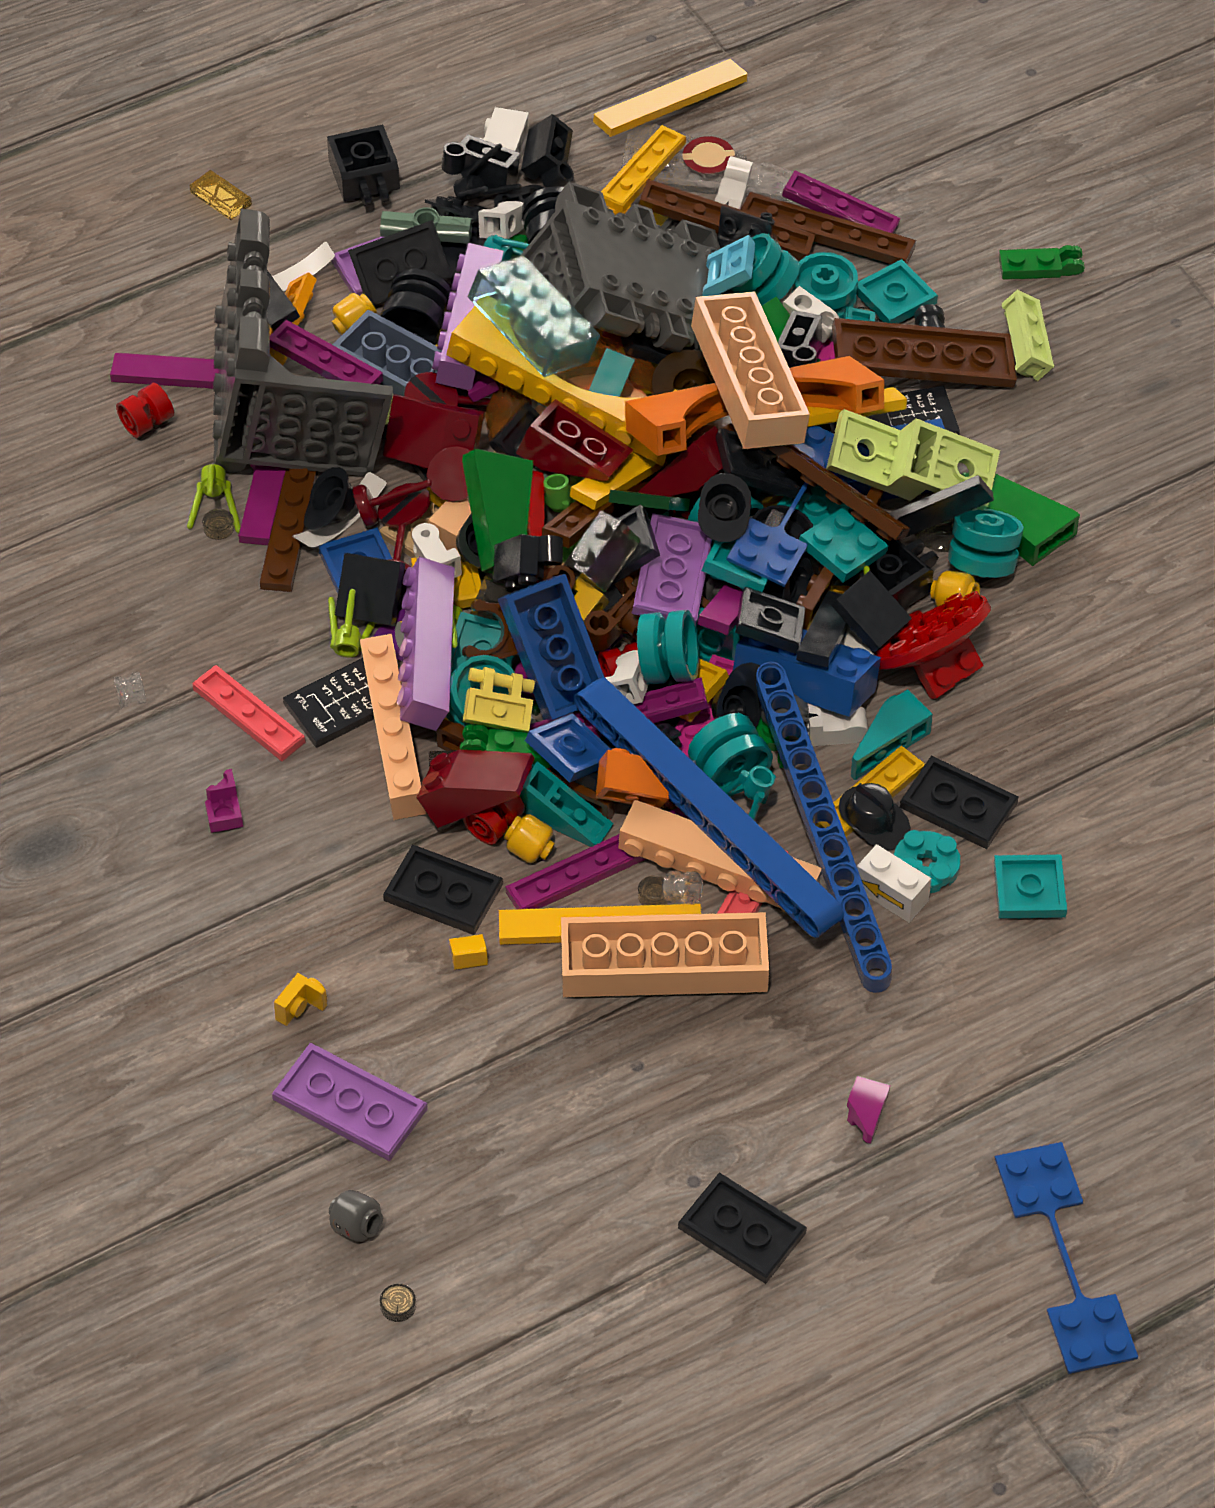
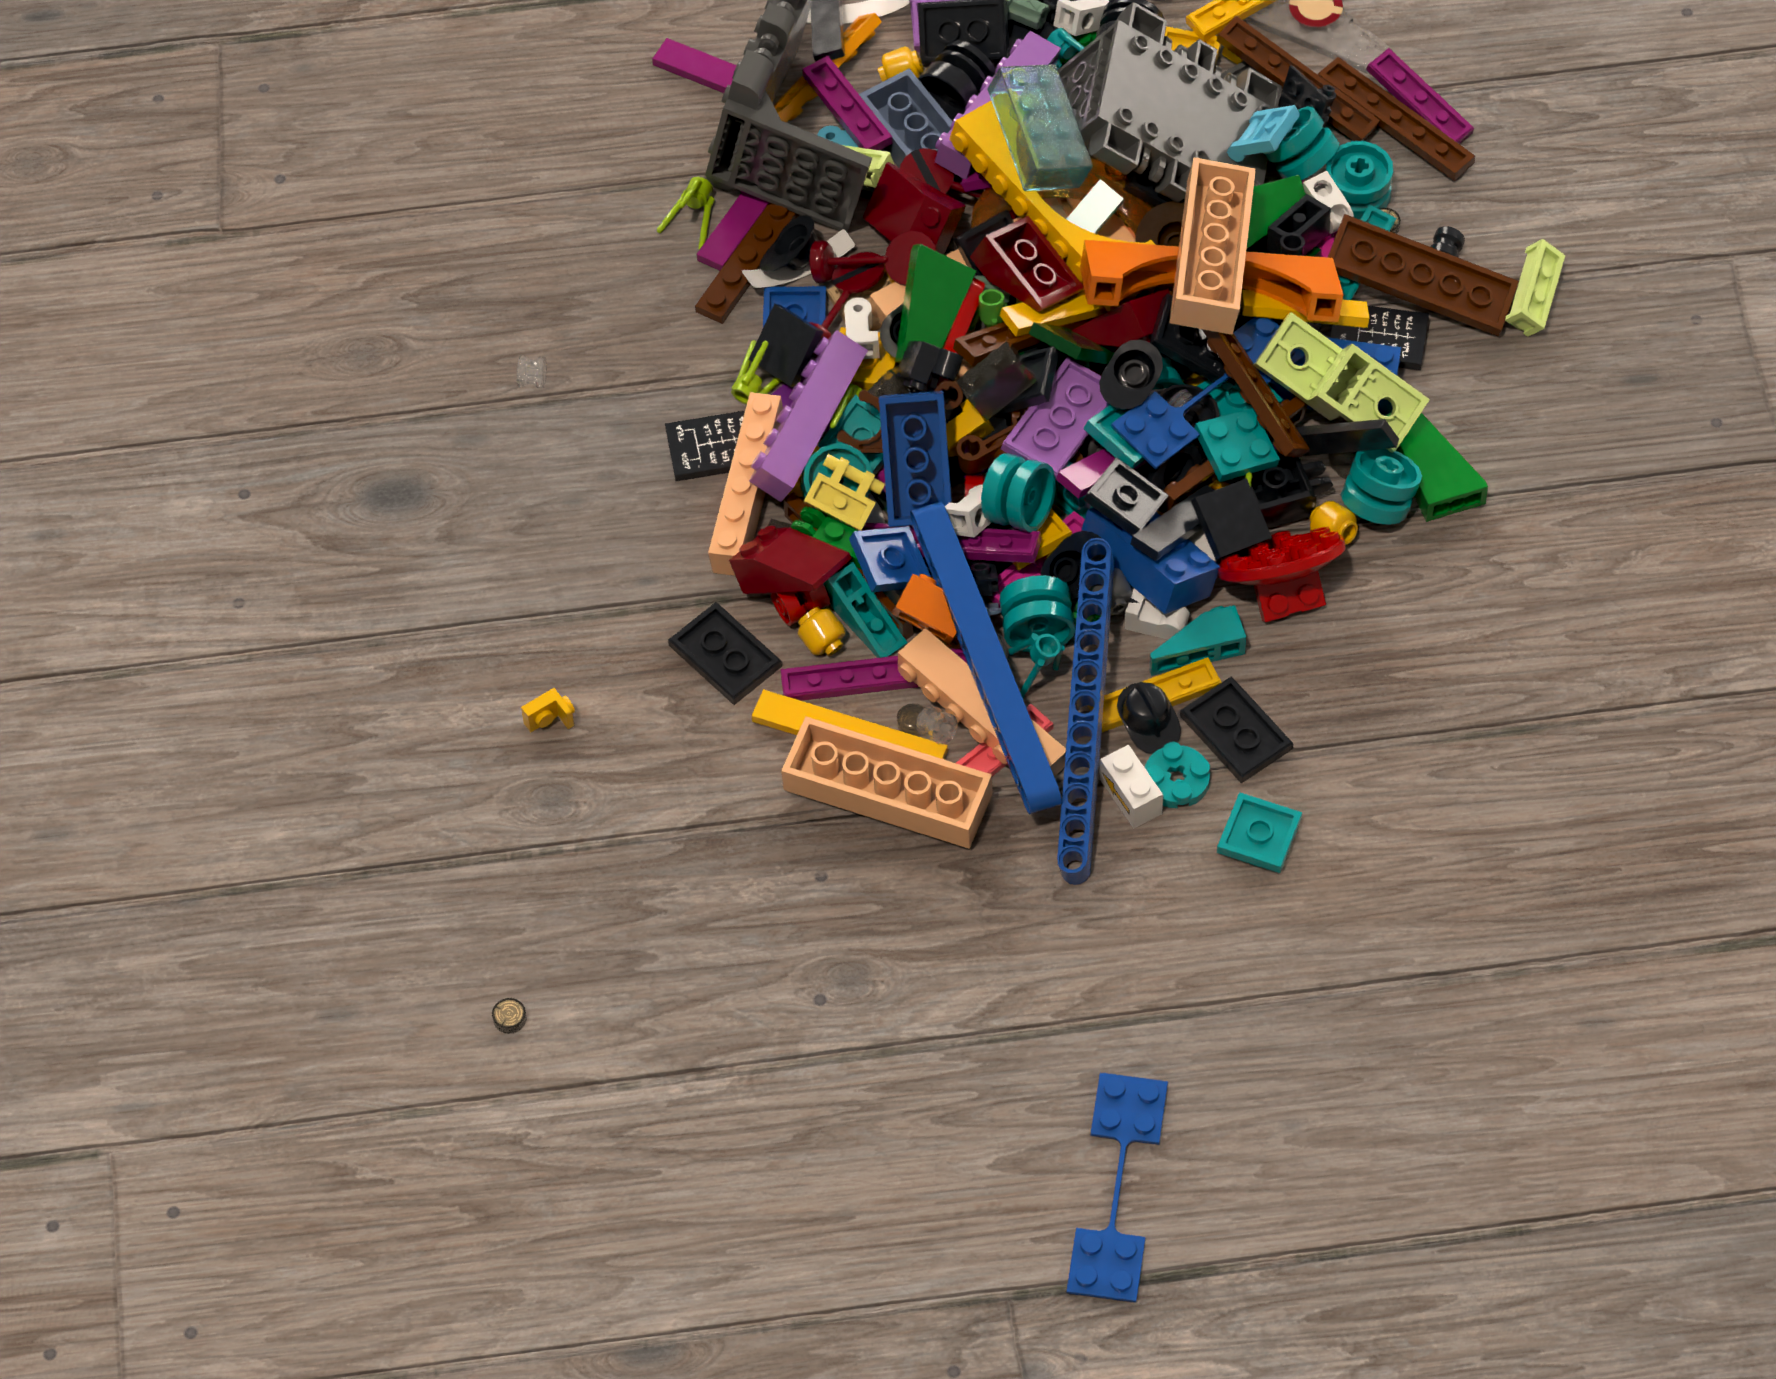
camera: 25 degrees right, 5 degrees up
(144, 410) = (676, 103): red wheel -> none
(218, 524) = (685, 236): clear smoke tile -> none
(223, 805) = (567, 508): magenta slope -> none
(248, 713) = (629, 428): coral tile -> none
(349, 1101) = (552, 820): medium lavender tile -> none
(355, 1215) = (506, 925): dark grey head -> none
(468, 951) = (719, 718): yellow slope -> none
(735, 182) = (1322, 45): white leg -> none
(742, 1228) = (841, 1056): black tile -> none
(866, 1105) = (1005, 984): magenta slope -> none
(895, 292) = (1429, 204): teal plate -> none
(1041, 262) = (1591, 216): green hinge -> none

